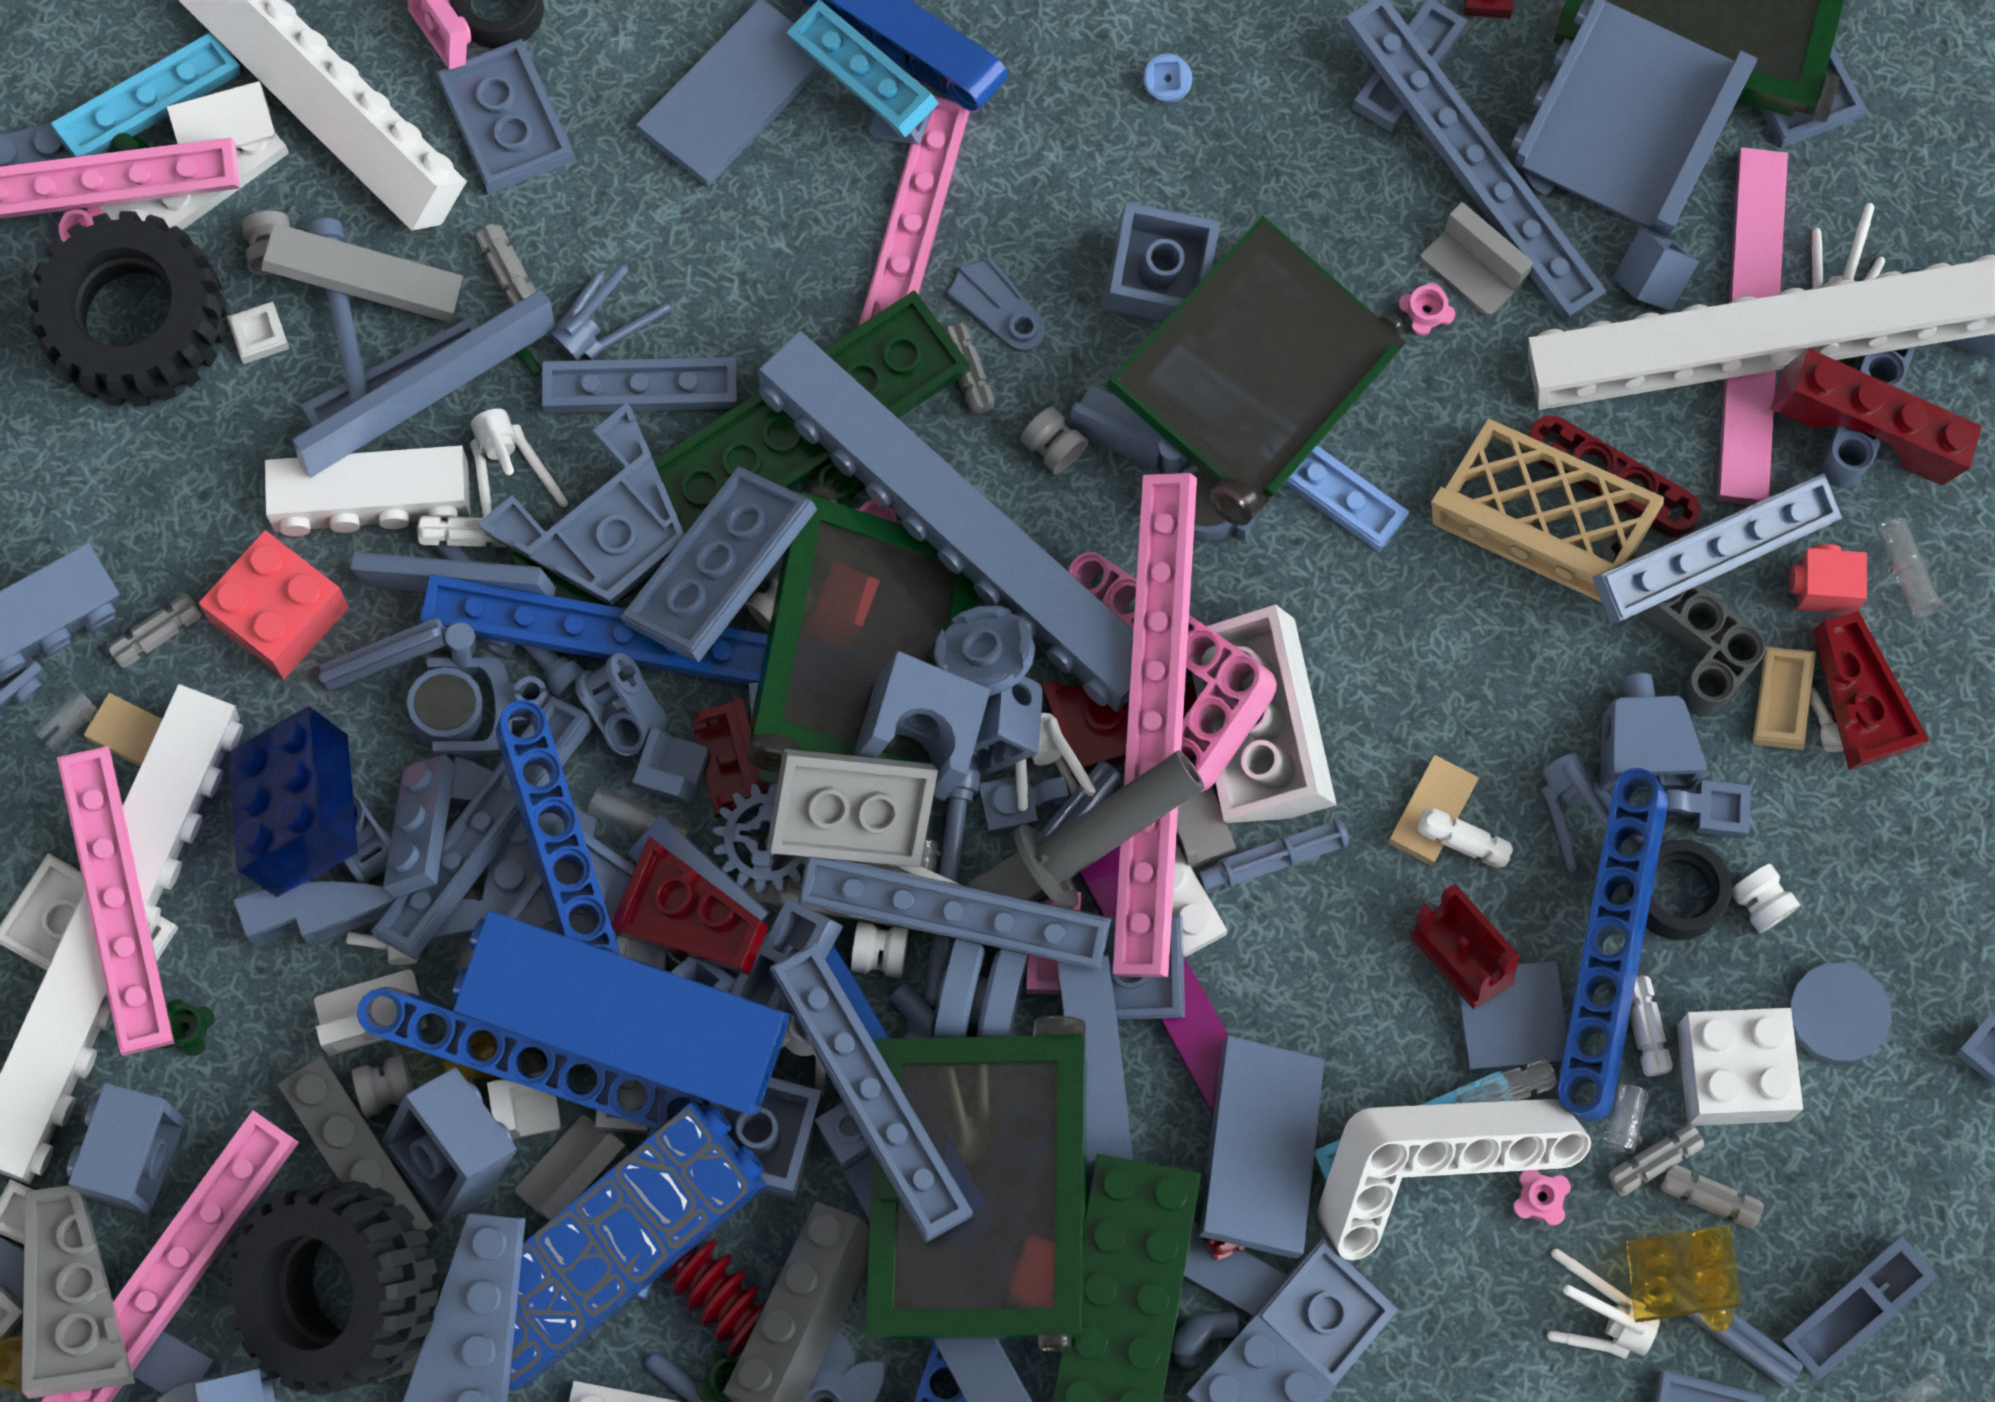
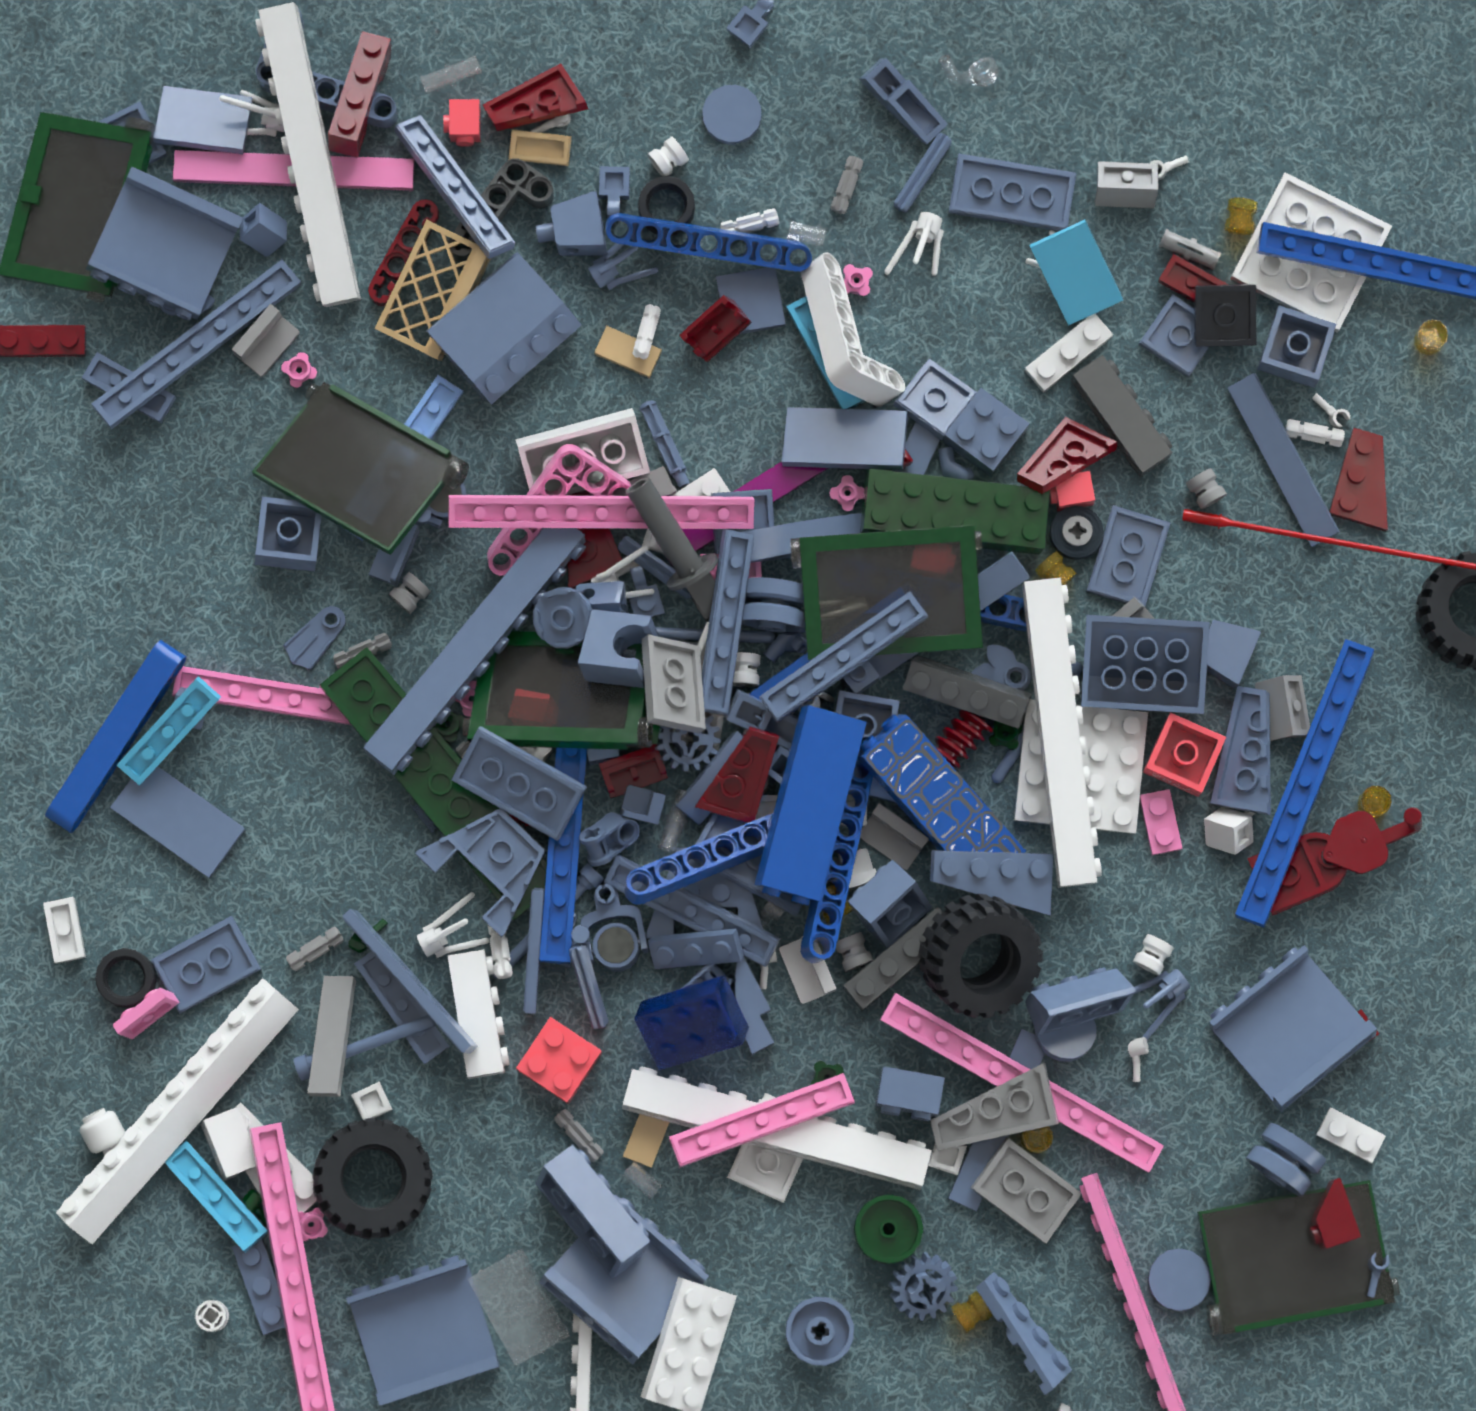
camera: 95 degrees left, 10 degrees up
(257, 231) = (306, 1107): light grey wheel -> none
(577, 331) = (359, 897): sand blue plant -> none
(641, 383) = (391, 854): sand blue plate -> none
(1168, 78) = (149, 540): light blue tile -> none
(1169, 1132) = (838, 493): none -> bright pink plate
(1478, 605) = (503, 328): none -> sand blue slope
(1510, 1085) = (797, 300): clear axle -> none
(1656, 1159) = (828, 216): light grey axle -> none
(1685, 1276) = (898, 198): clear yellow hinge -> none
(1739, 1066) = (772, 170): white brick -> none
(1829, 186) = (202, 120): none -> tile

